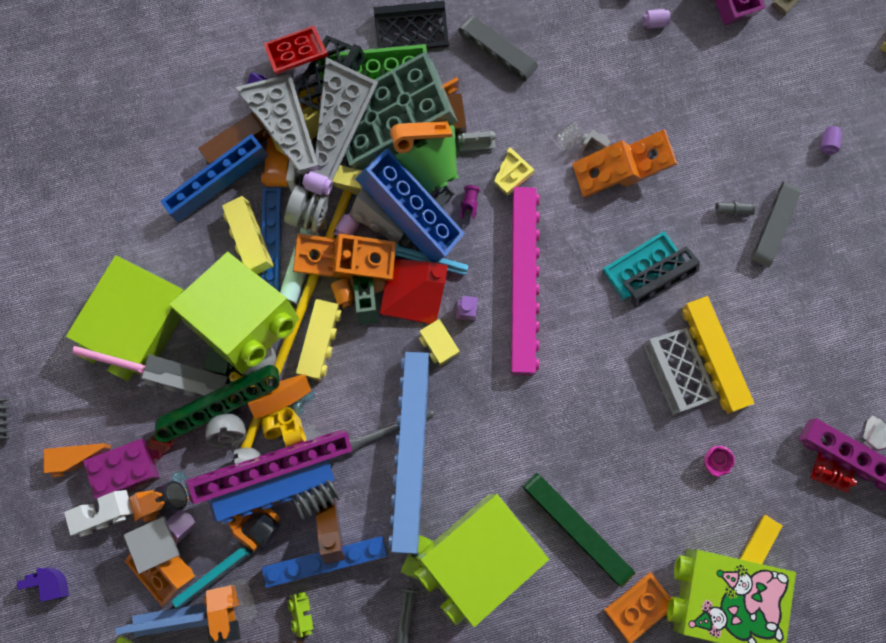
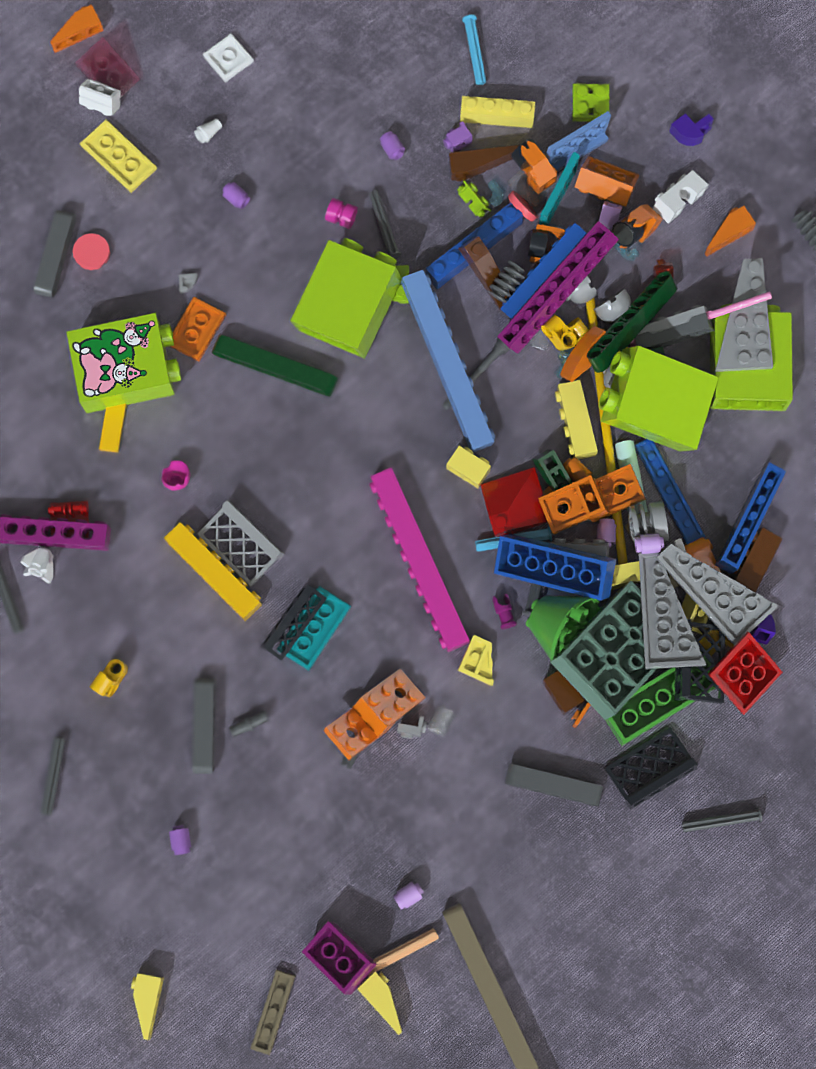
camera: 160 degrees right, 0 degrees up
(116, 334) = (747, 331): none -> light grey wing
(121, 468) = (683, 238): magenta brick -> none
(151, 545) = (620, 188): light grey tile -> none
(247, 235) = (691, 481): light yellow brick -> none
(257, 578) = (522, 205): none -> coral tile
(274, 608) = (497, 195): none -> clear light blue arm
(404, 134) = (577, 624): orange door -> none
(467, 308) = (458, 508): medium lavender brick -> none
(476, 141) = (528, 678): light grey hinge -> none
(850, 298) = (107, 681): none -> yellow piece

